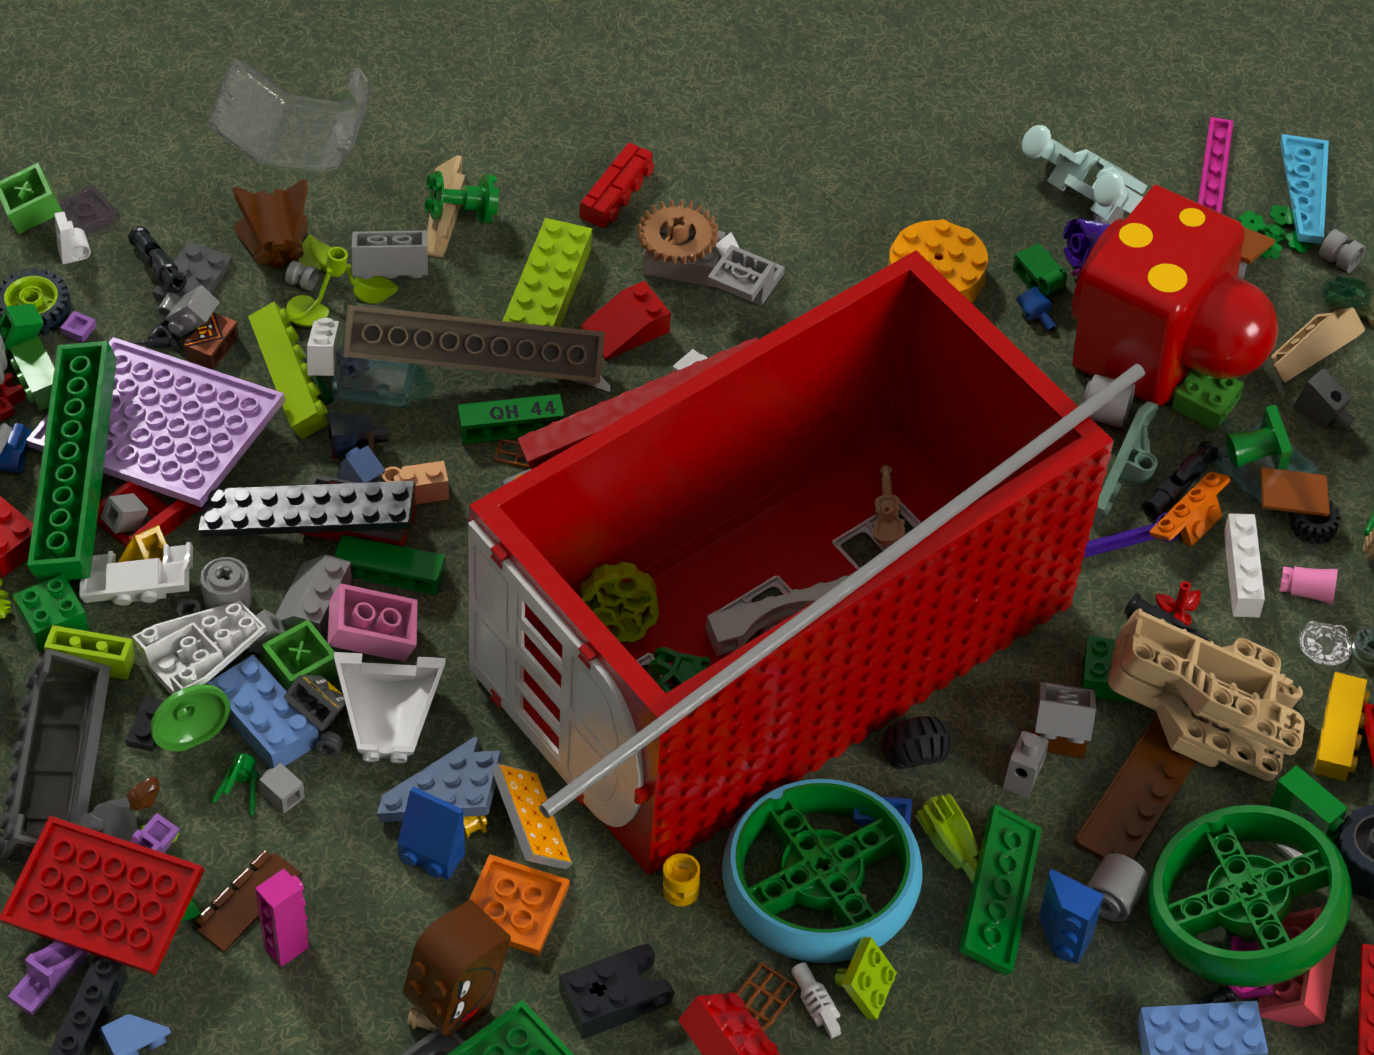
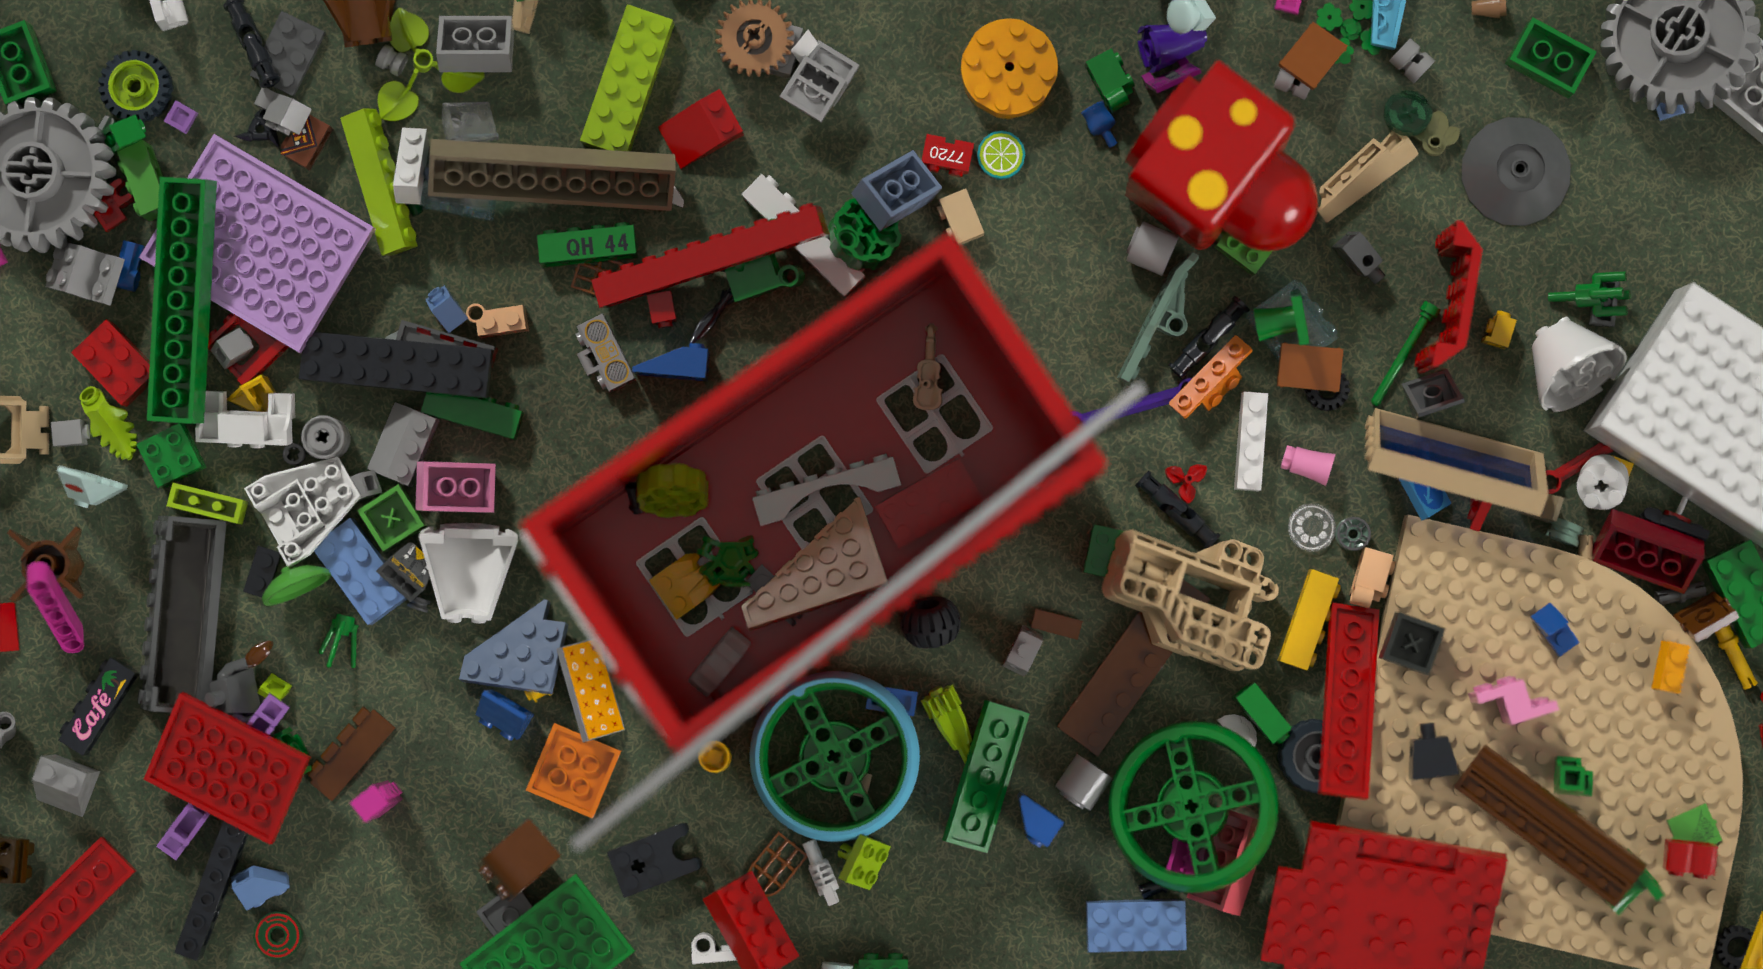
camera: 10 degrees right, 35 degrees up
(281, 788) = (377, 647): light grey brick -> none
(353, 431) = (439, 265): black torso -> none
(1065, 712) = (1062, 609): light grey brick -> none

